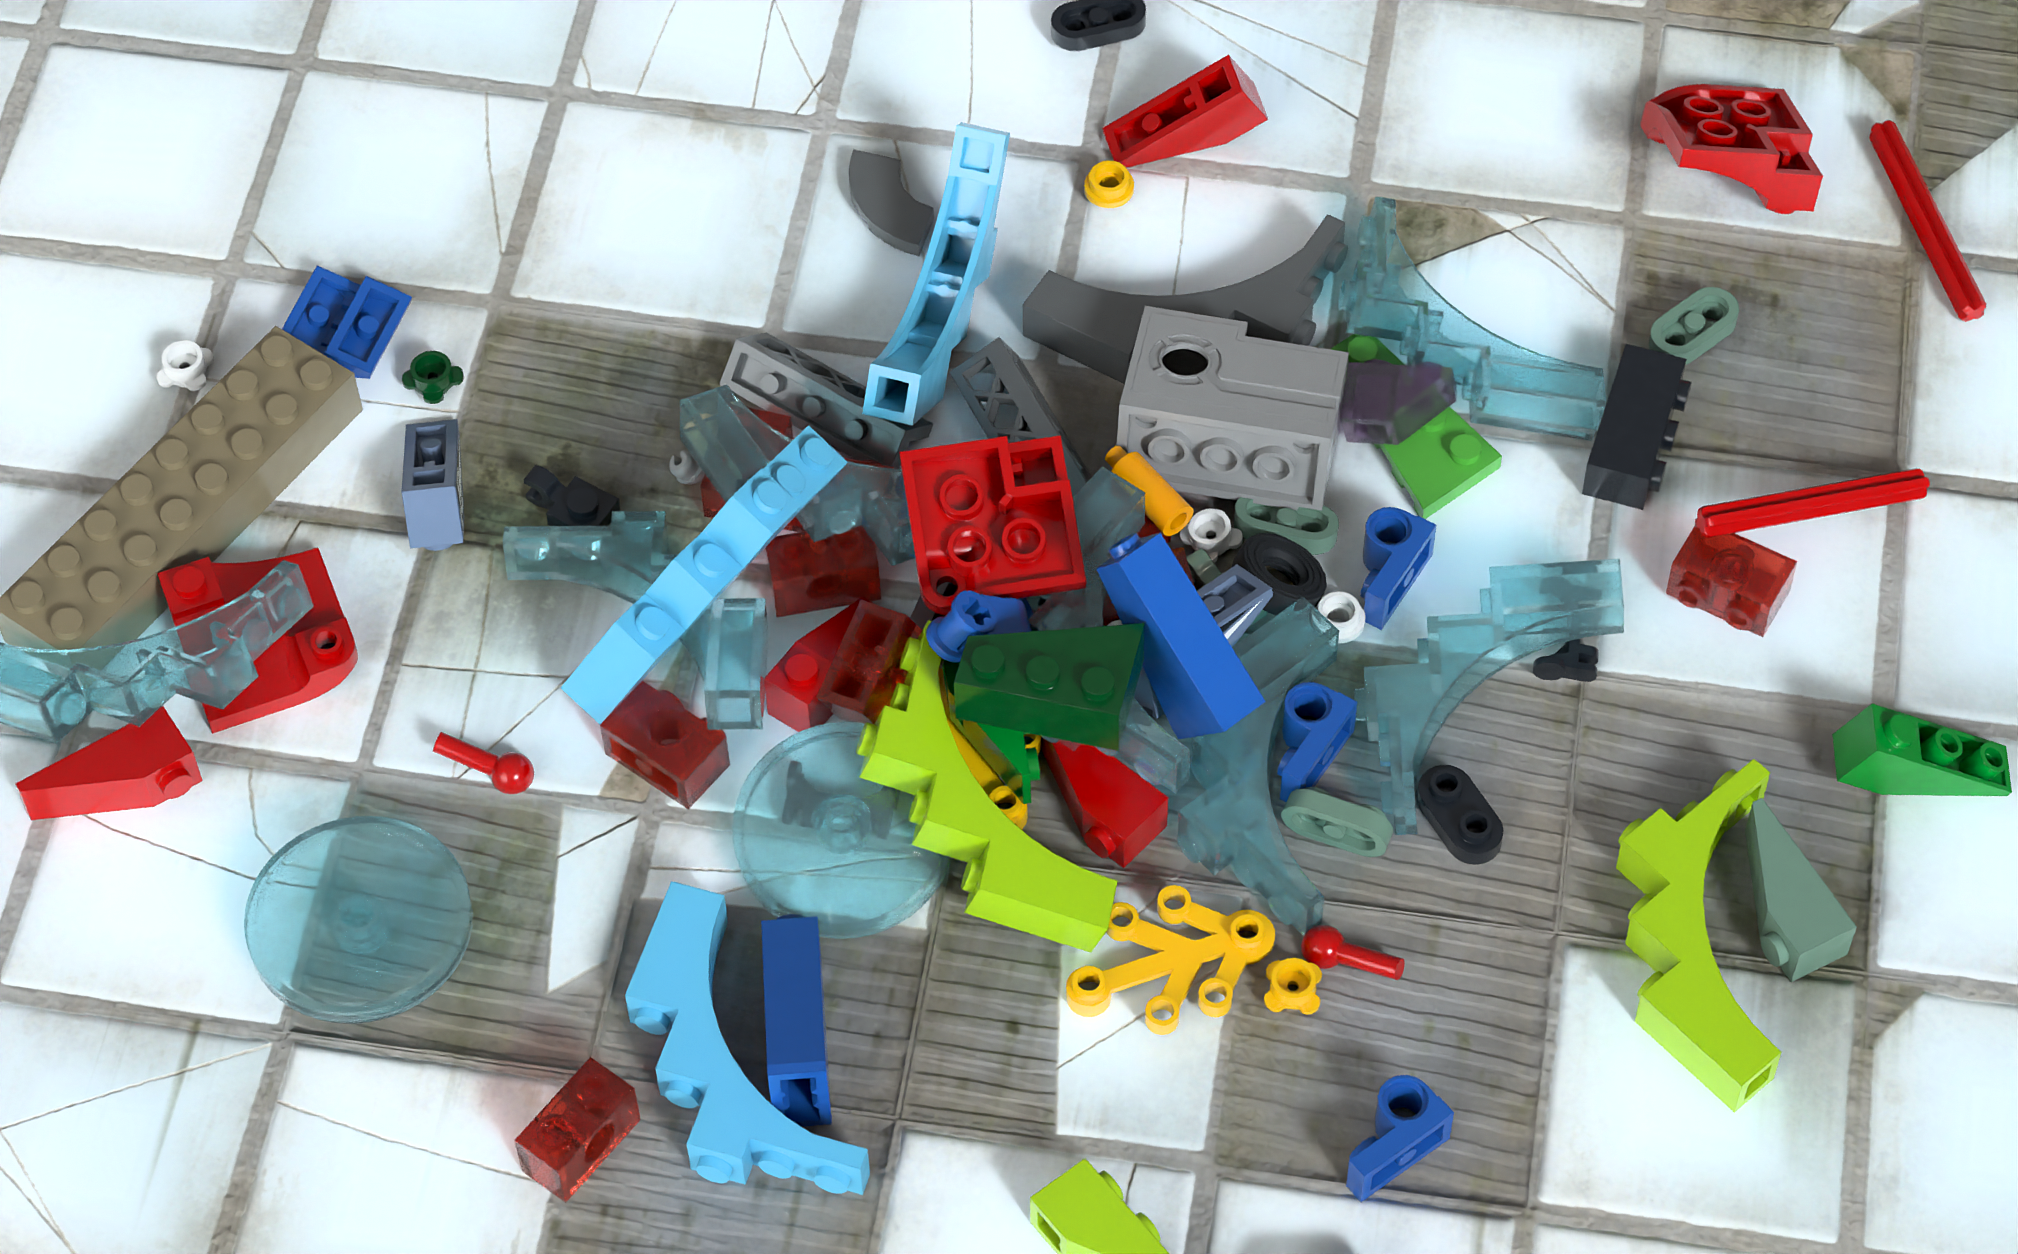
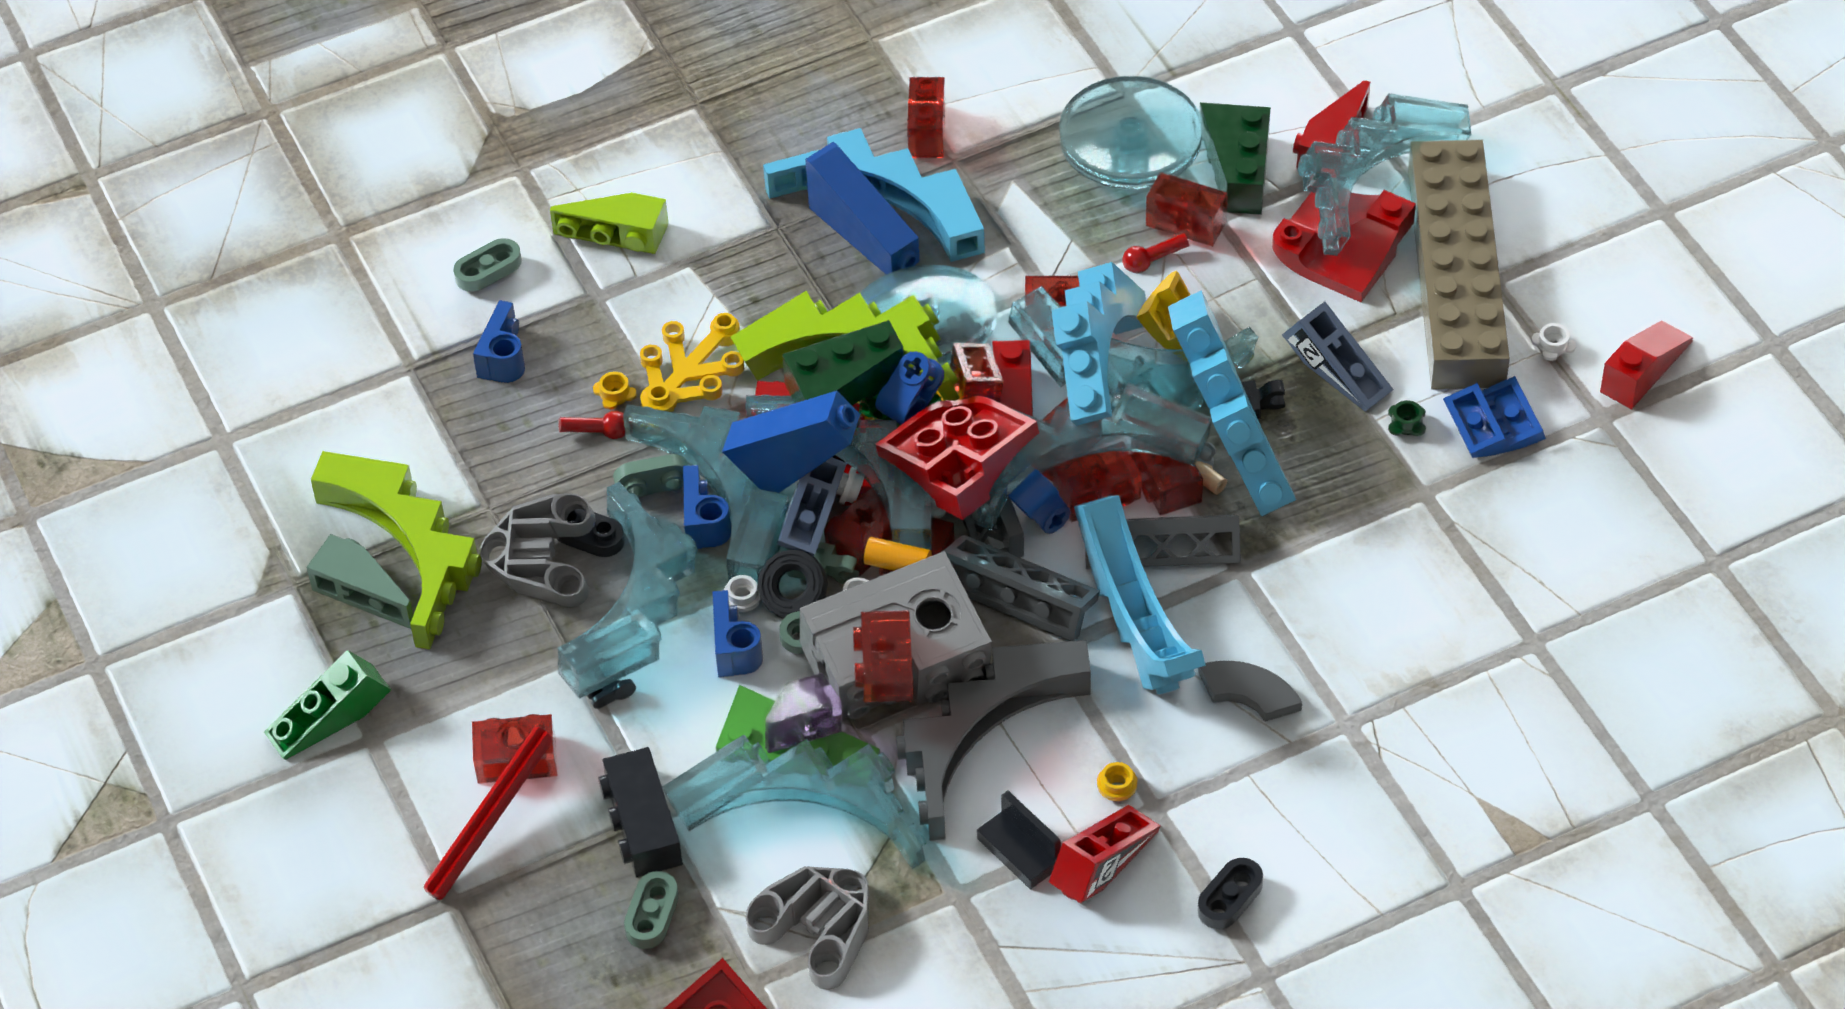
camera: 145 degrees right, 5 degrees down
(125, 277) = (1642, 362): none -> red slope
(260, 803) = (1238, 152): none -> dark green wedge
(405, 760) = (1186, 208): none -> clear red brick
(562, 634) = (1155, 313): none -> yellow brick
(617, 462) = (1228, 403): none -> medium azure arch
(1261, 182) = (1021, 841): none -> black panel
(1283, 324) = (890, 676): none -> clear red brick
(1509, 215) = (821, 904): none -> light grey connector
(1555, 807) = (529, 542): none -> light grey connector

